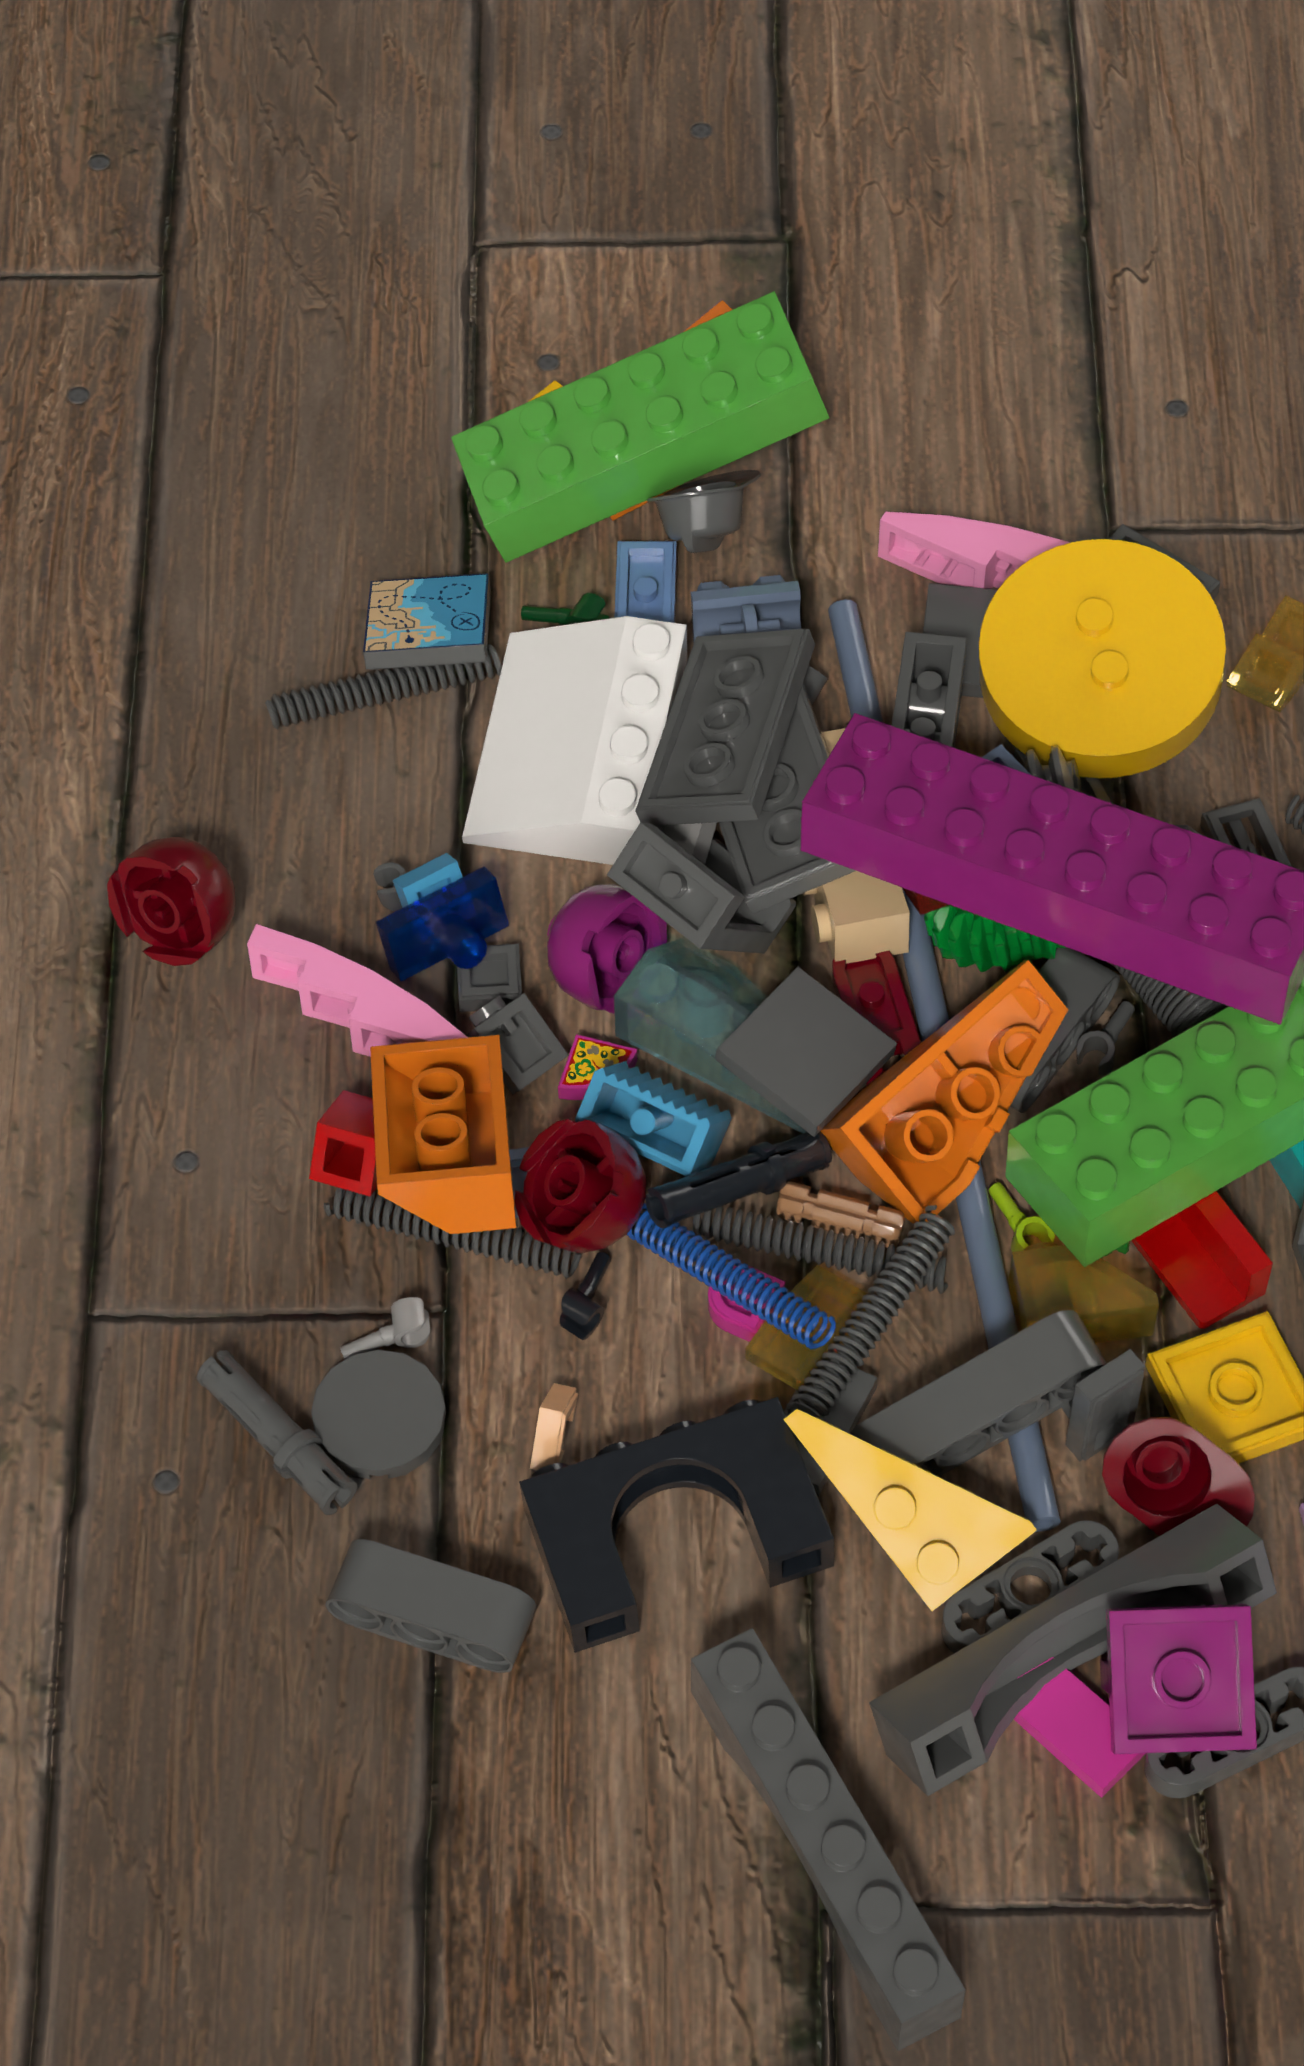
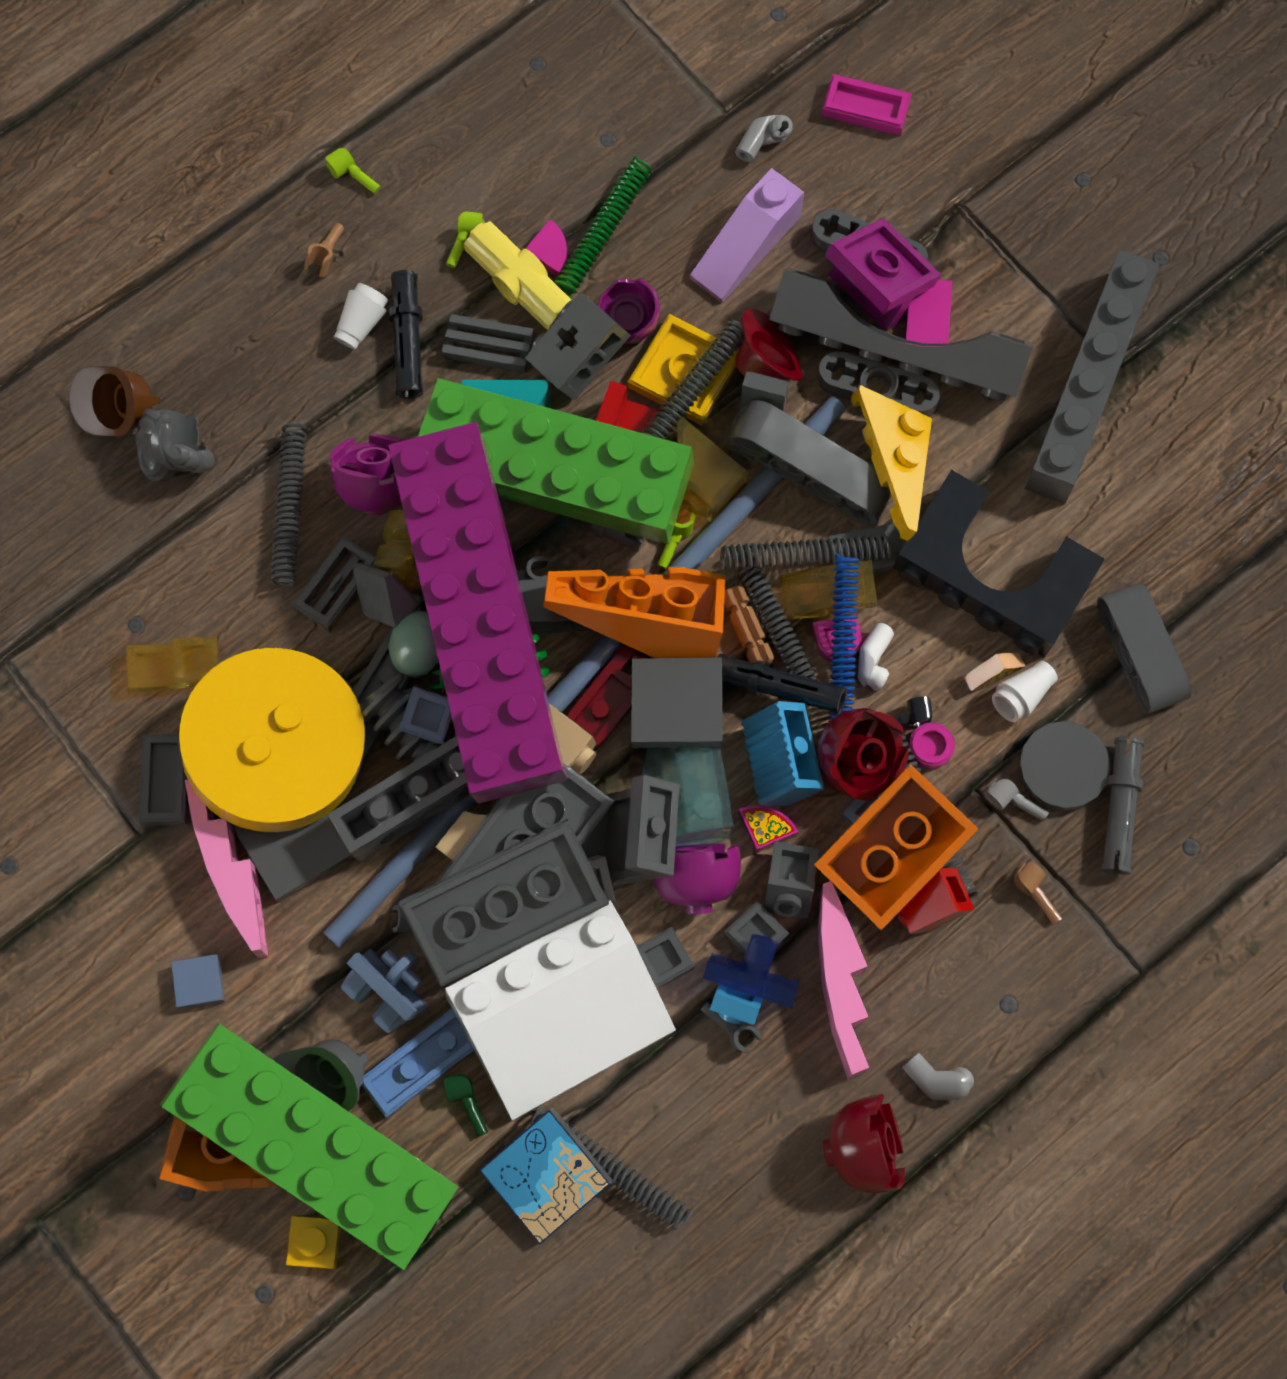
camera: 130 degrees left, 15 degrees up
(176, 1020) = (939, 1084): none -> light grey arm
(288, 1270) = (1027, 881): none -> medium nougat hand
(500, 1434) = (1022, 693): none -> white cone
(530, 1299) = (931, 745): none -> dark pink tile
(544, 875) = (665, 958): none -> dark grey tile
(690, 1308) = (870, 653): none -> white arm
(903, 479) = (198, 981): none -> sand blue tile
(1189, 1358) = (676, 411): none -> dark grey piece

